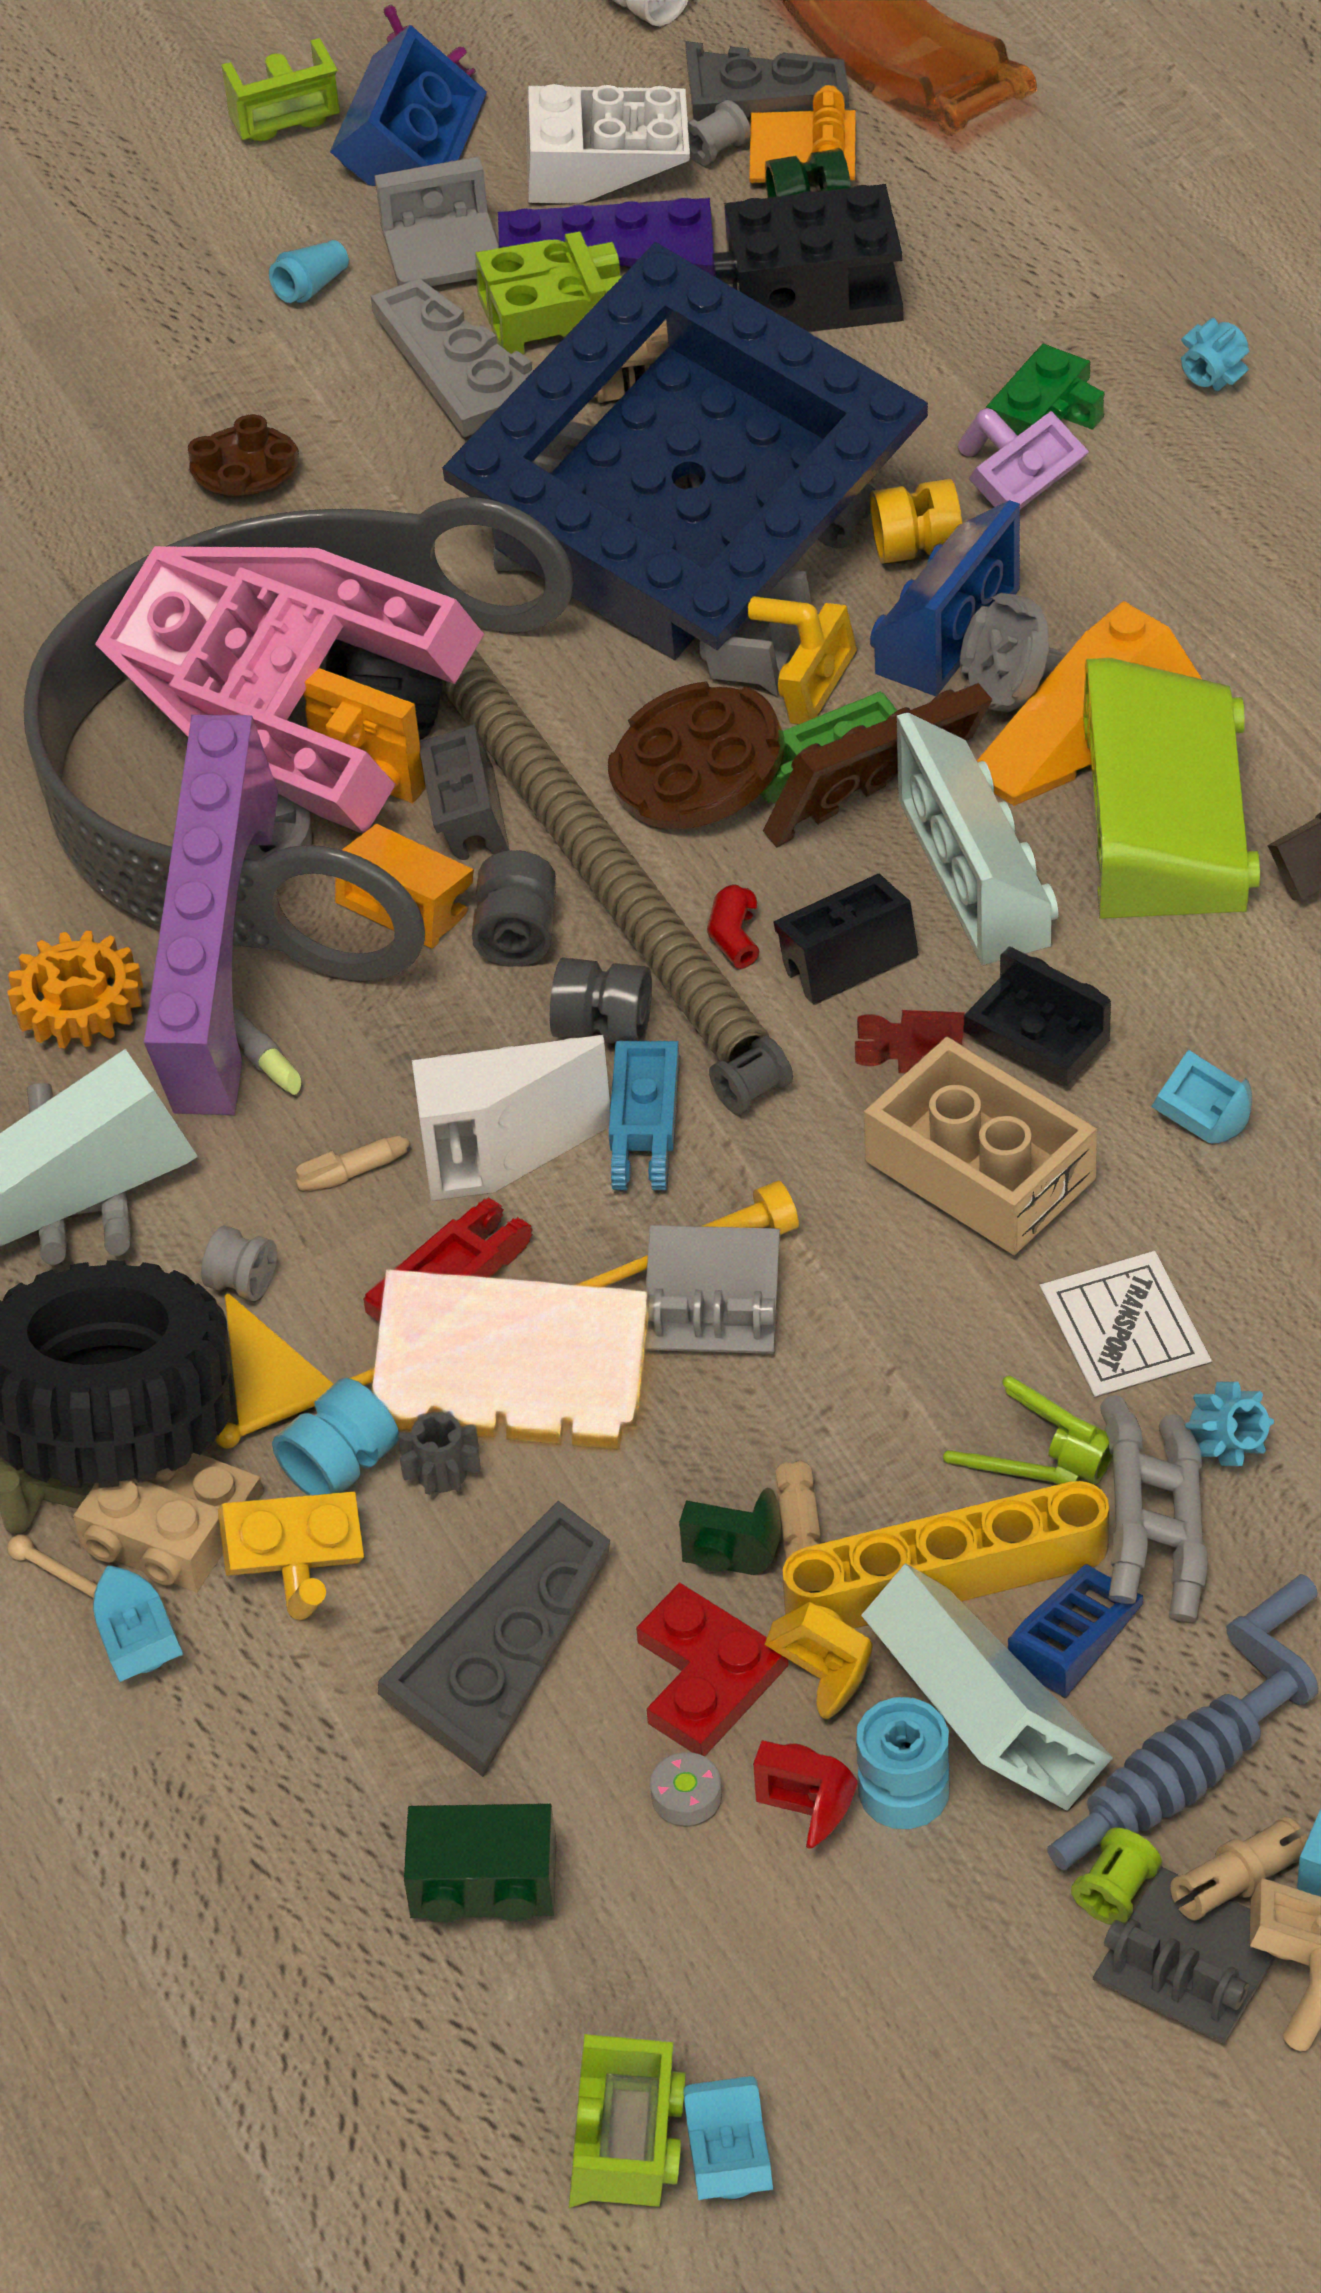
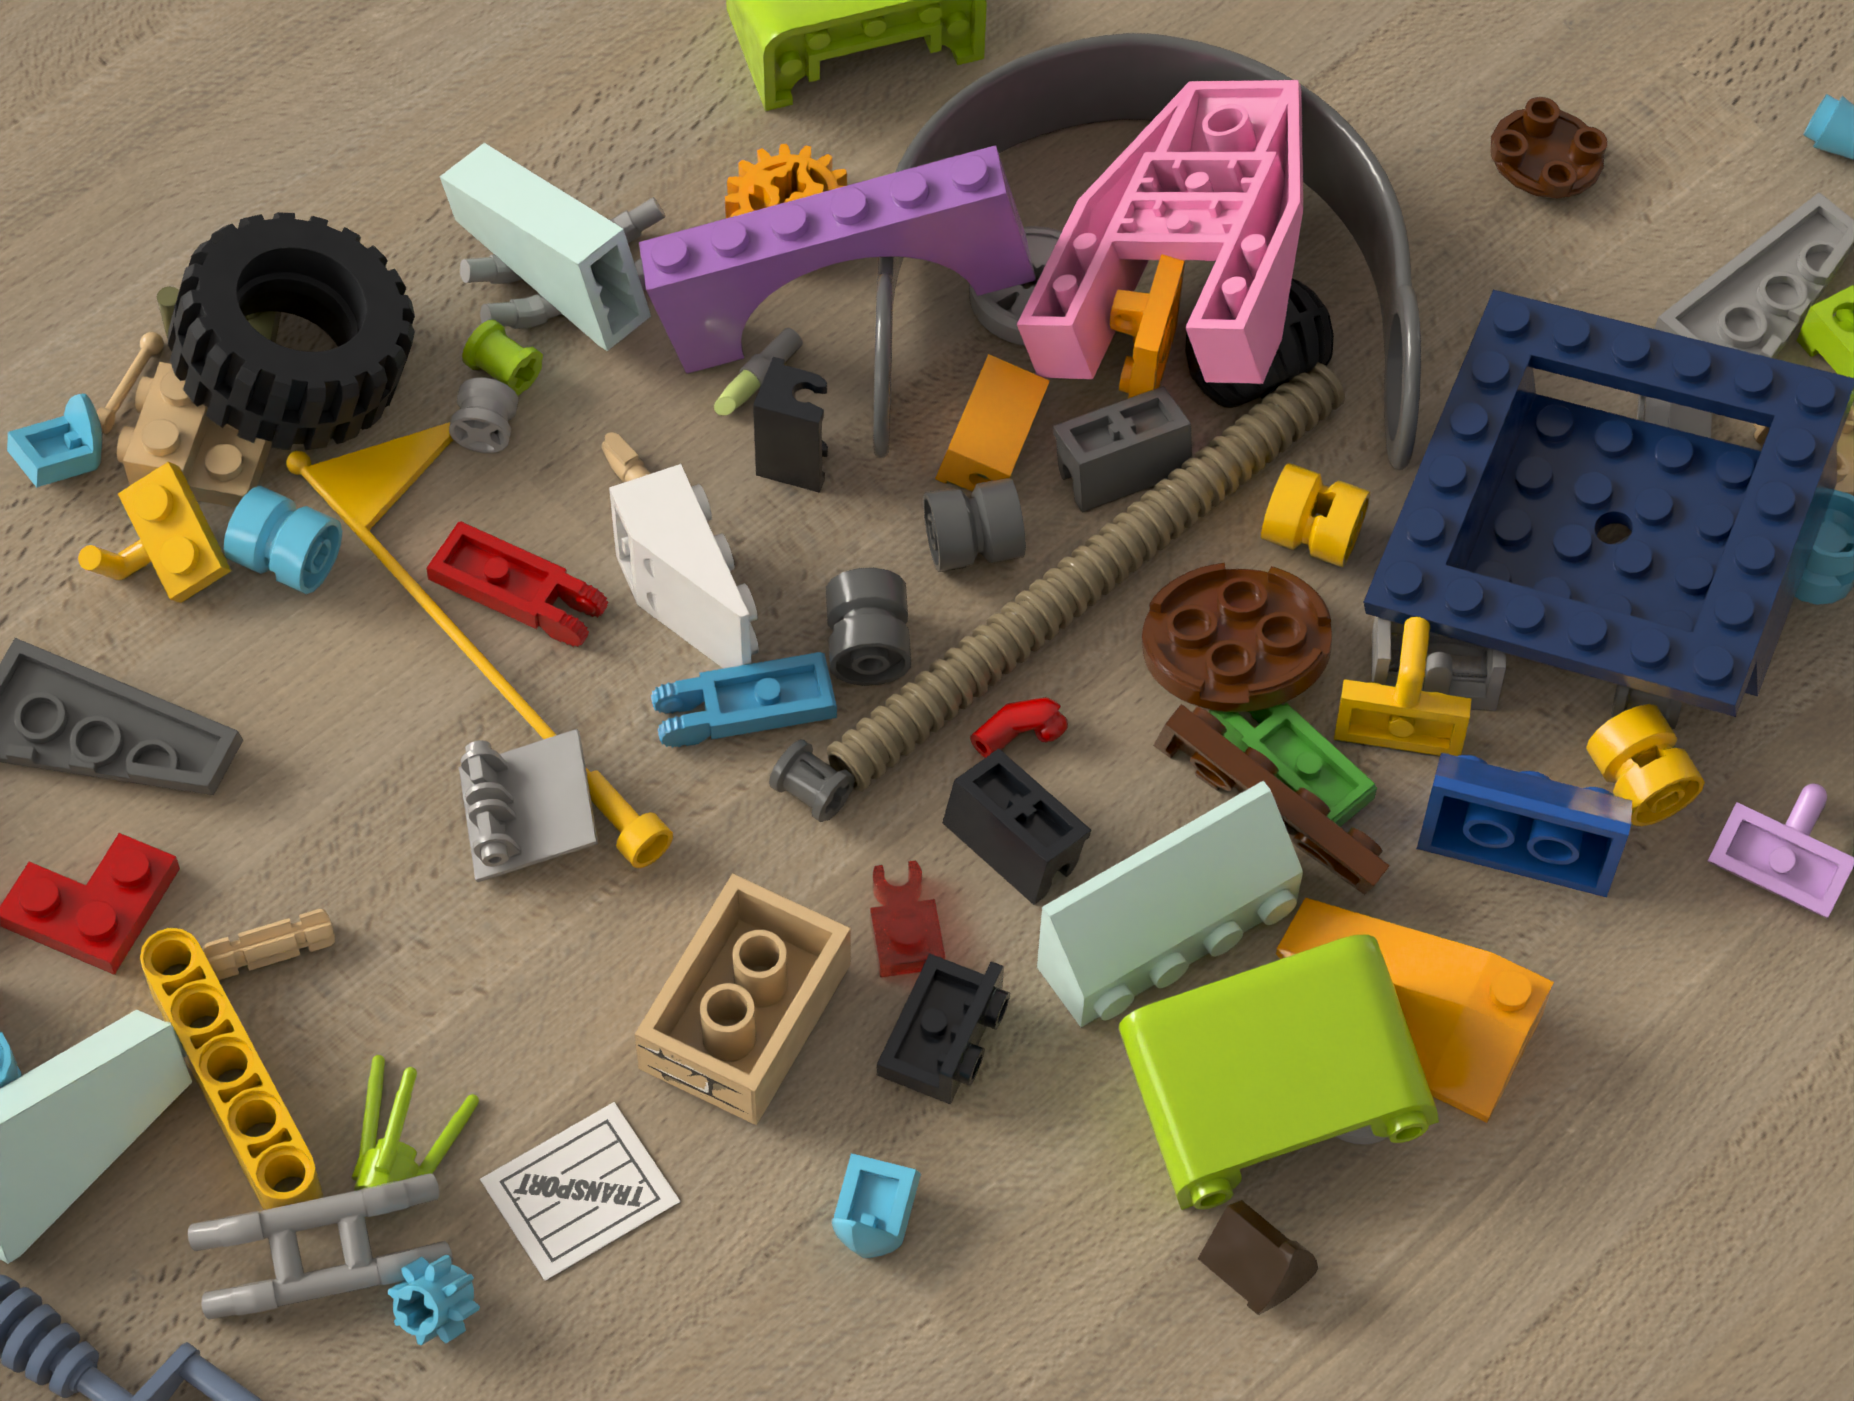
camera: 70 degrees right, 10 degrees up
(173, 1238) = (502, 357): none -> lime bush
(363, 1009) = (788, 430): none -> black hinge
(439, 1452) = (290, 626): dark grey gear -> none
(512, 1352) = (403, 654): clear yellow hinge -> none
(589, 675) = (1293, 510): none -> yellow wheel
(731, 1538) = (224, 881): dark green plate -> none
(827, 1649) = (107, 985): yellow plate -> none
(1008, 650) = (1459, 897): light grey tile -> none
(1065, 1668) = (139, 1216): blue slope -> none

